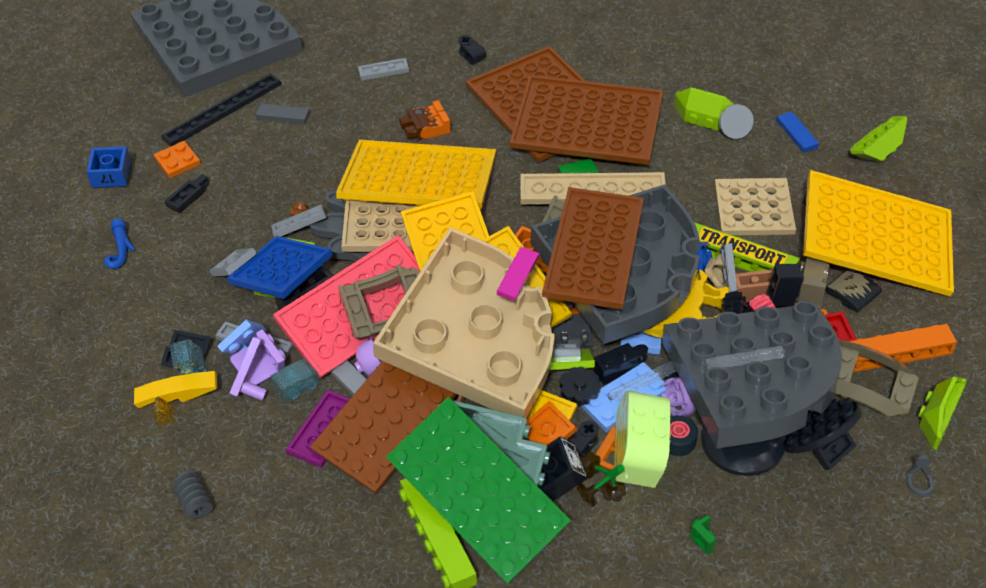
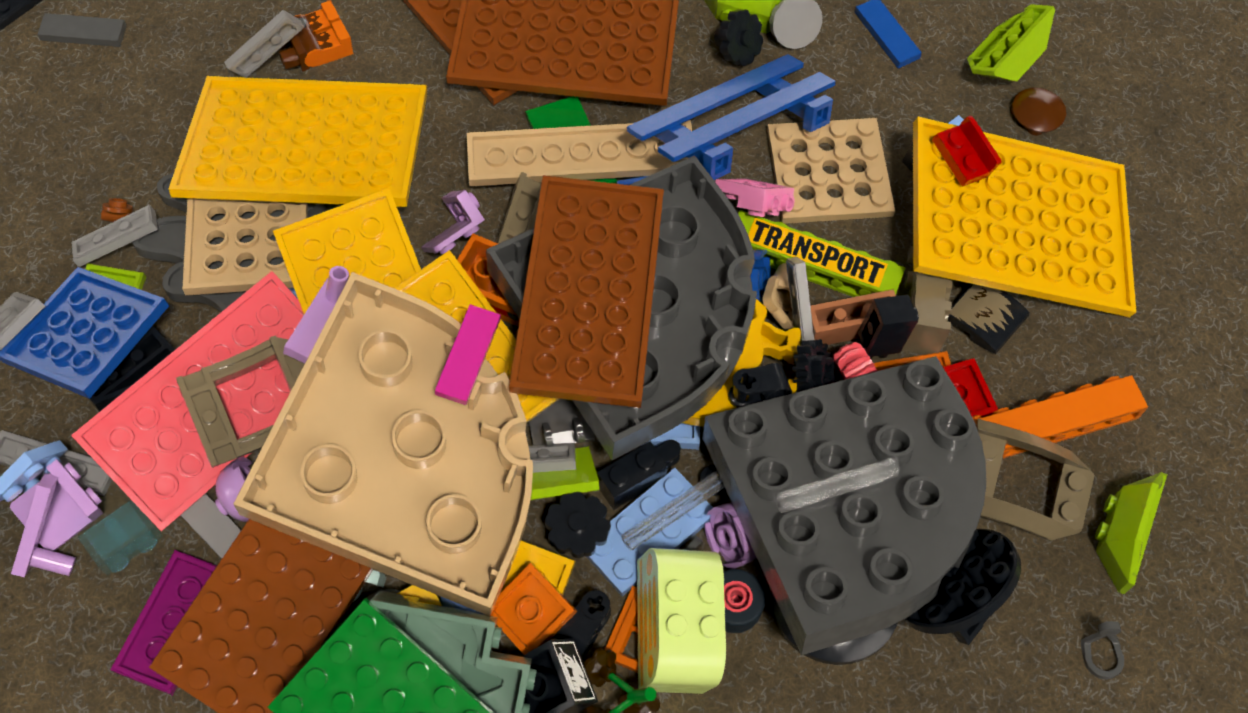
camera: 10 degrees left, 15 degrees up
(396, 121) = (264, 44): none -> light grey tile
(421, 259) = (309, 328): none -> lavender piece
(516, 214) = (465, 211): none -> lavender bracket
(699, 129) = (739, 37): none -> black plant
(699, 309) = (759, 384): none -> black piece
(707, 214) = (758, 196): none -> bright pink plate
(715, 159) = (767, 80): none -> blue fence
(842, 190) = (967, 151): none -> red bracket
(896, 178) = (1038, 110): none -> reddish brown dish

